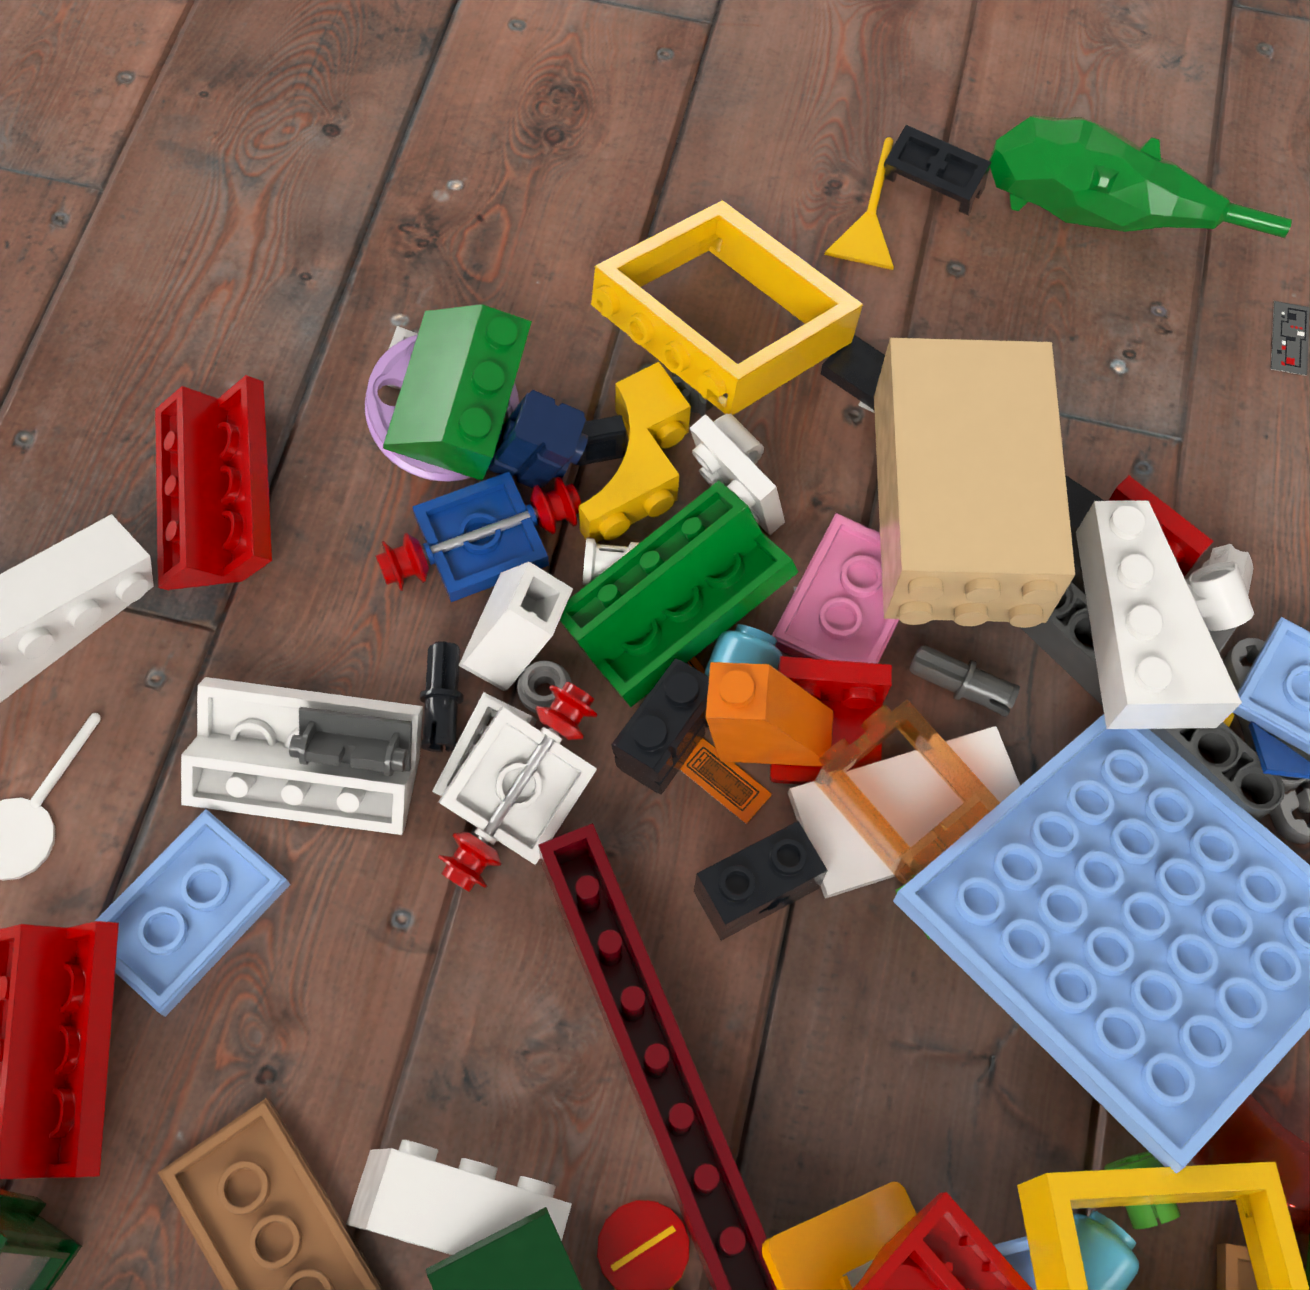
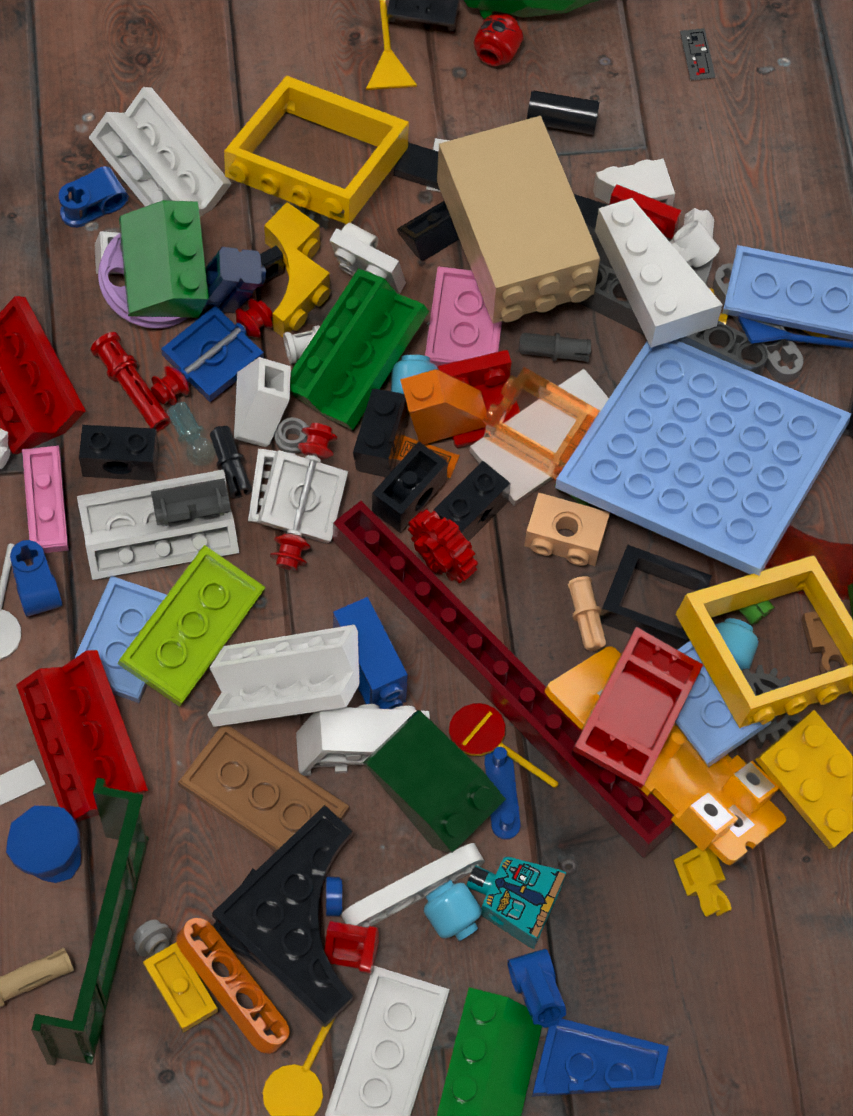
camera: 20 degrees left, 0 degrees up
(93, 789) = (35, 582): none -> blue piece
(169, 667) = (45, 498): none -> bright pink tile
(281, 928) = (191, 625): none -> lime tile
(291, 633) = (119, 452): none -> black brick
(351, 519) = (122, 369): none -> red pin
(373, 1073) = (286, 676): none -> white slope
(408, 663) = (199, 449): none -> clear light blue axle
(414, 277) = (94, 195): none -> blue piece
(513, 1080) = (380, 669): none -> blue window
(521, 256) = (158, 154): none -> white slope
(677, 822) = (409, 486): none -> black brick
(691, 935) = (442, 546): none -> red gear
(841, 463) = (429, 232): none -> black slope
(878, 1116) = (587, 613): none -> light nougat axle
(917, 1127) = (627, 620): none -> black window
(924, 969) = (555, 514): none -> light nougat brick
(1022, 238) = (498, 39): none -> red head
(1086, 358) = (564, 111): none -> black brick
(1171, 478) = (644, 177): none -> white slope

